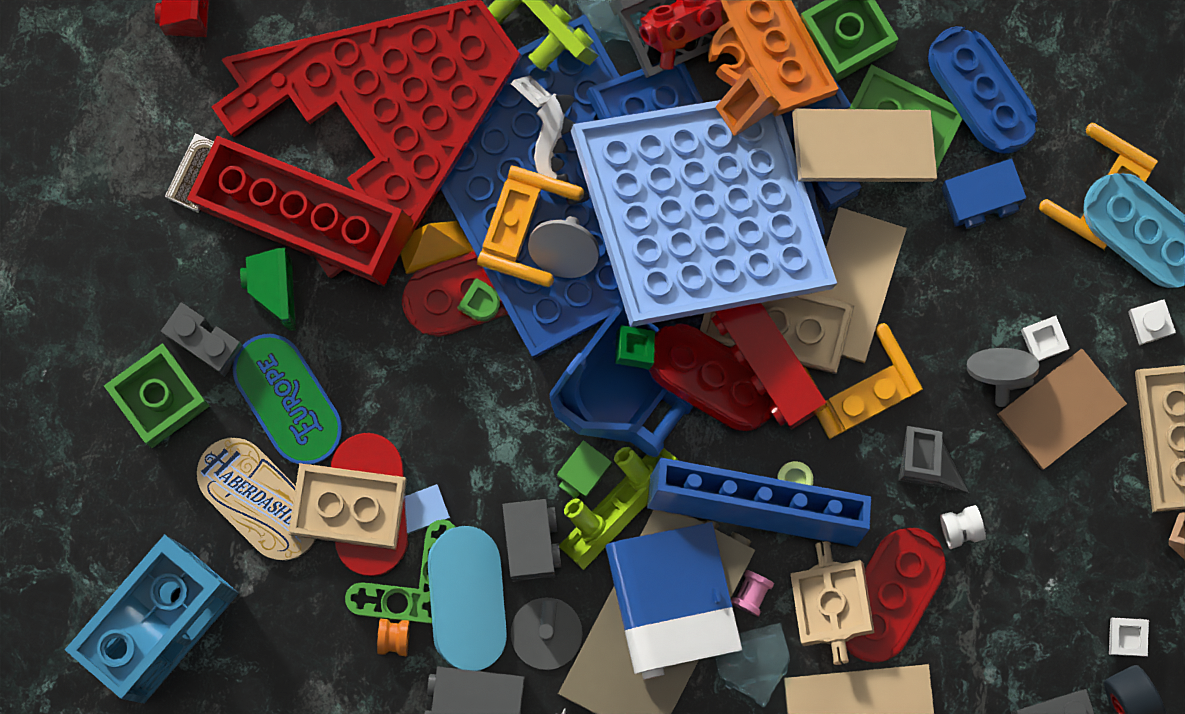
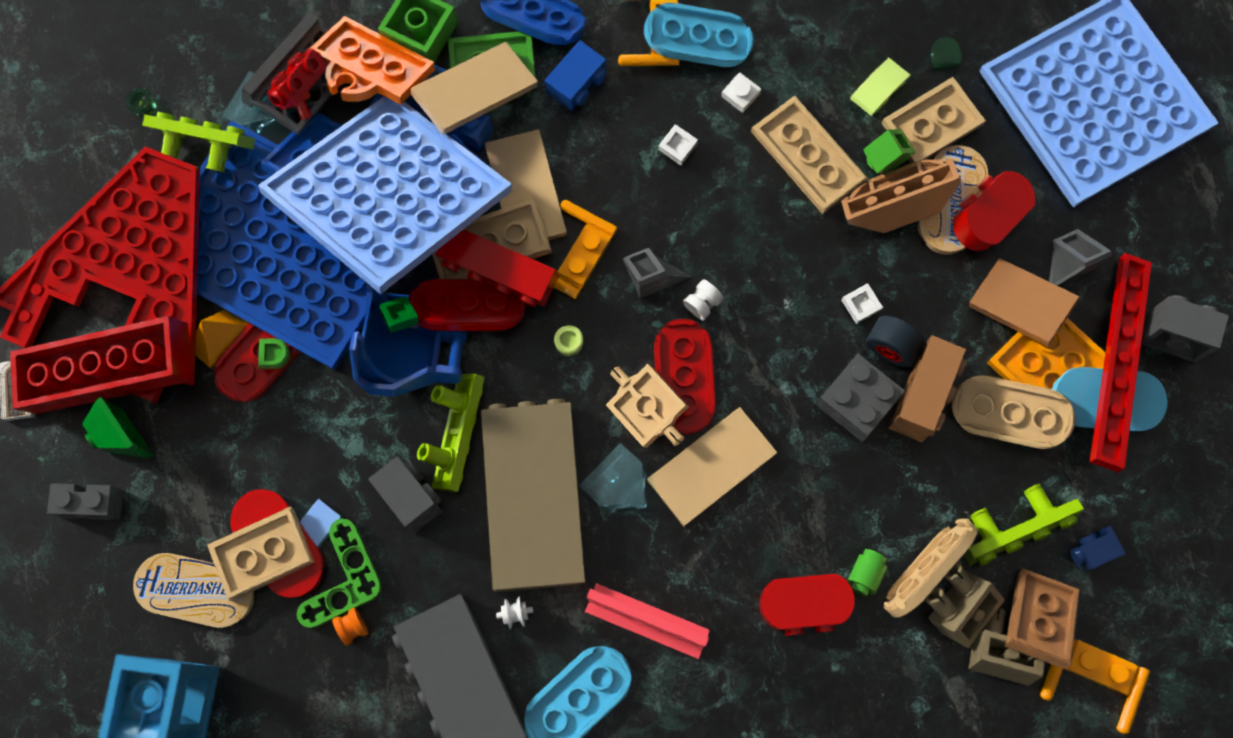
camera: 30 degrees left, 5 degrees down
(156, 396) = (72, 562): bright green brick -> none
(287, 399) = (174, 506): green tile -> none
(467, 598) = (387, 564): medium azure tile -> none
(513, 220) = (261, 284): light orange plate -> none
(546, 633) = (460, 554): dark grey shield -> none
(554, 126) = (255, 214): white piece -> none
(563, 248) = (306, 278): light grey shield -> none
(583, 471) = (416, 424): bright green brick -> none
(673, 598) = (532, 470): blue door -> none
(747, 102) = (373, 101): orange slope -> none
(752, 593) = (587, 434): bright pink bush -> none
(759, 502) = (551, 367): blue brick -> none
(1005, 369) = (668, 177): shield -> none
(1062, 409) = (718, 184): medium nougat tile -> none

